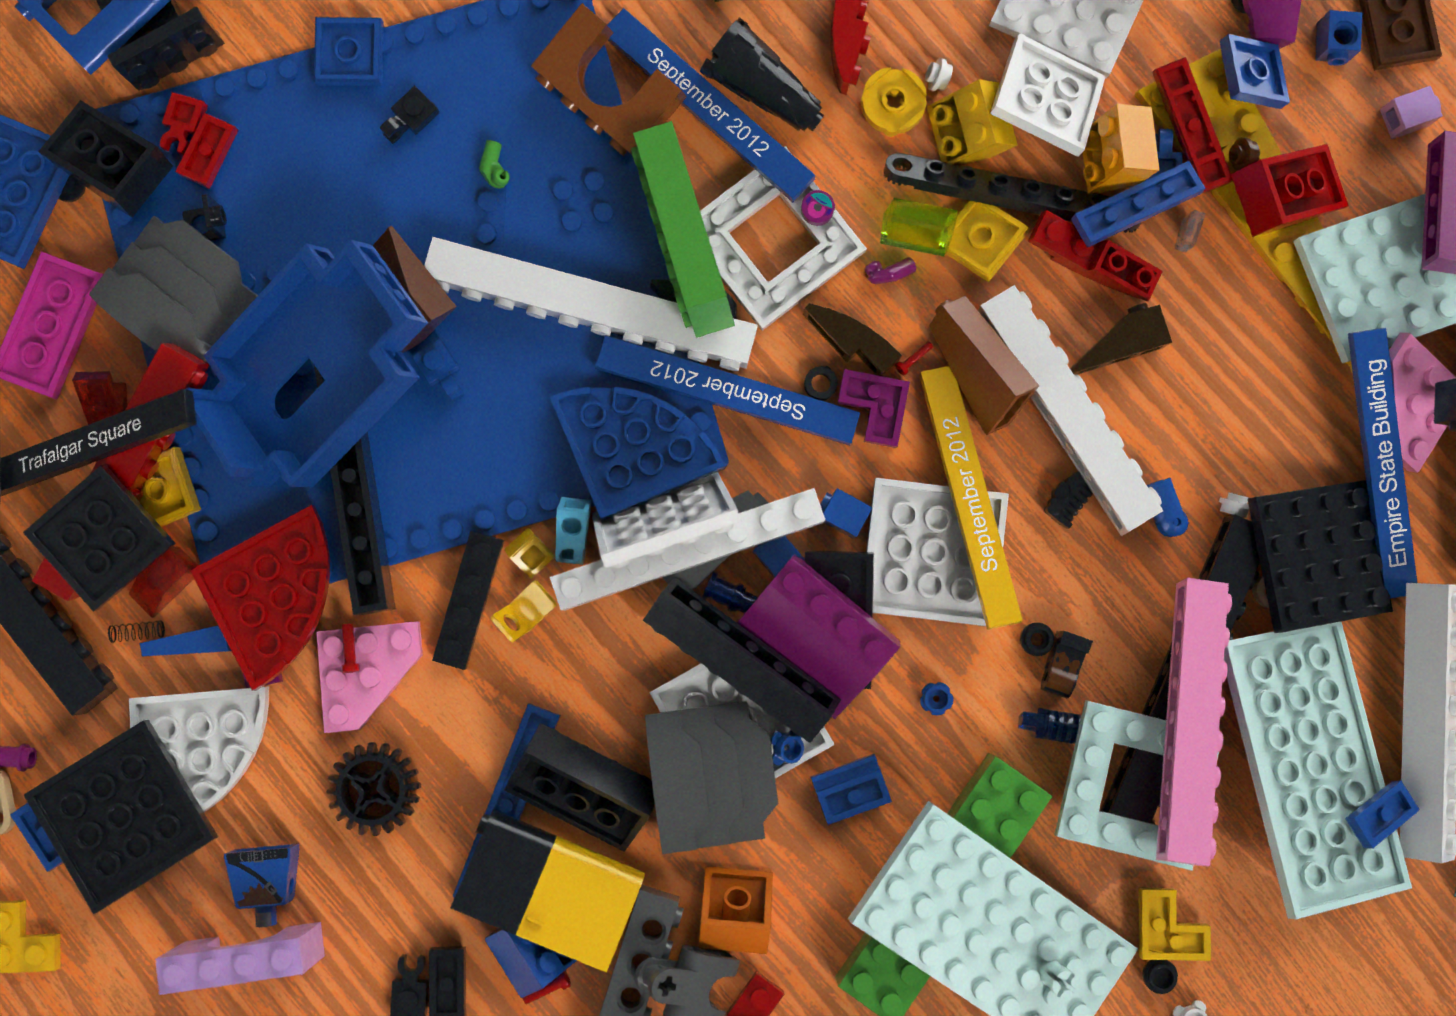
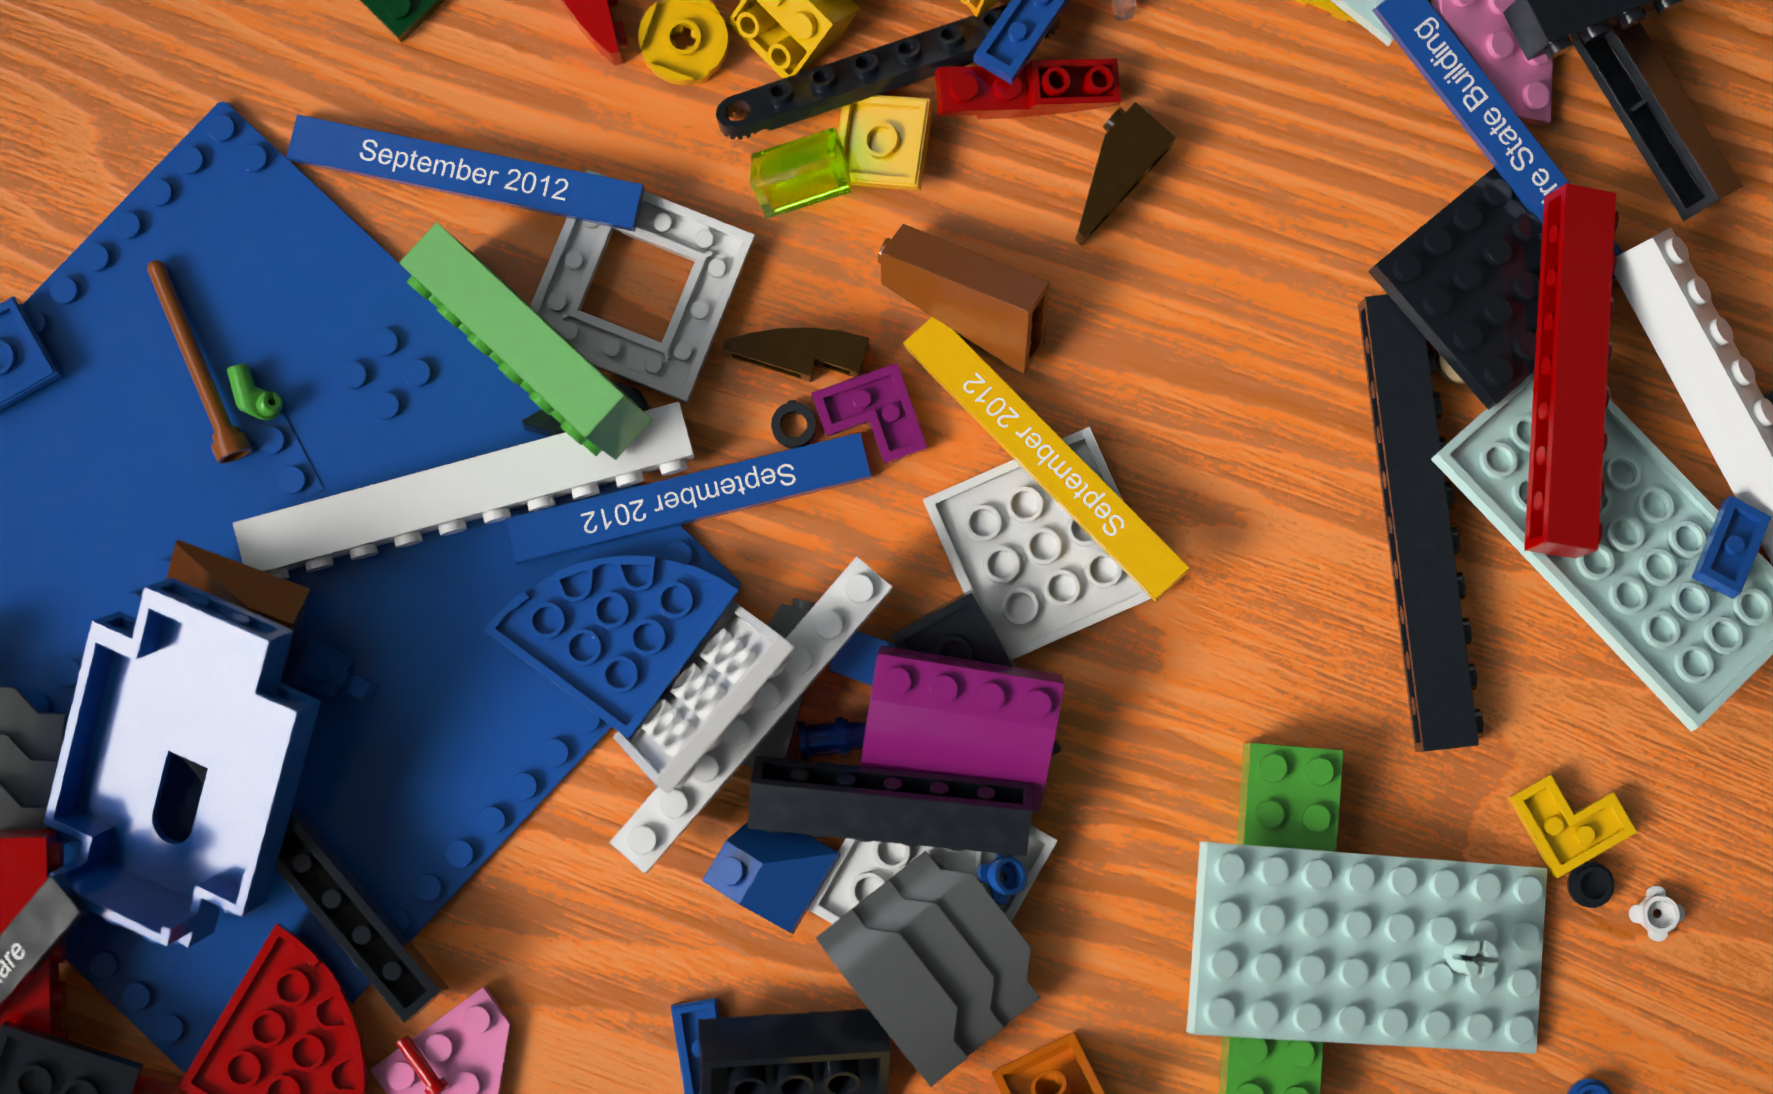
camera: 25 degrees left, 0 degrees up
(170, 491) = (97, 1006): yellow plate -> none
(411, 113) = (118, 386): black plate -> none
(460, 186) = (228, 440): none -> dark orange piece
(468, 600) = (528, 926): black plate -> none
(525, 611) = (603, 899): yellow bracket -> none
(529, 553) = (567, 828): yellow slope -> none
(565, 65) = (269, 230): dark orange arch -> none
(572, 530) = (602, 771): medium azure leg -> none
(641, 657) = (772, 873): none -> blue slope
(757, 75) = (503, 104): black cone -> none
(817, 208) = (668, 221): tile -> none
(844, 512) = (910, 562): blue brick -> none
(851, 789) = (1107, 881): blue plate -> none
(892, 273) = (801, 246): magenta arm -> none
(903, 367) = (879, 349): red piece -> none
(945, 698) = (1145, 703): blue plate -> none
(1047, 639) = (1232, 567): black plate -> none
(1051, 724) = (1314, 661): clear blue hinge -> none
(1064, 663) = (1270, 587): black leg -> none
(1068, 499) = (1164, 383): black piece -> none
(1072, 415) = (1105, 289): white brick -> none
(1079, 810) = (1515, 708): light aqua plate -> none
(1172, 519) = (1282, 335): blue piece -> none
(1193, 723) = (1452, 569): bright pink brick -> none
(1235, 504) = (1359, 285): white plate -> none
(1343, 640) = (1571, 372): none -> red brick

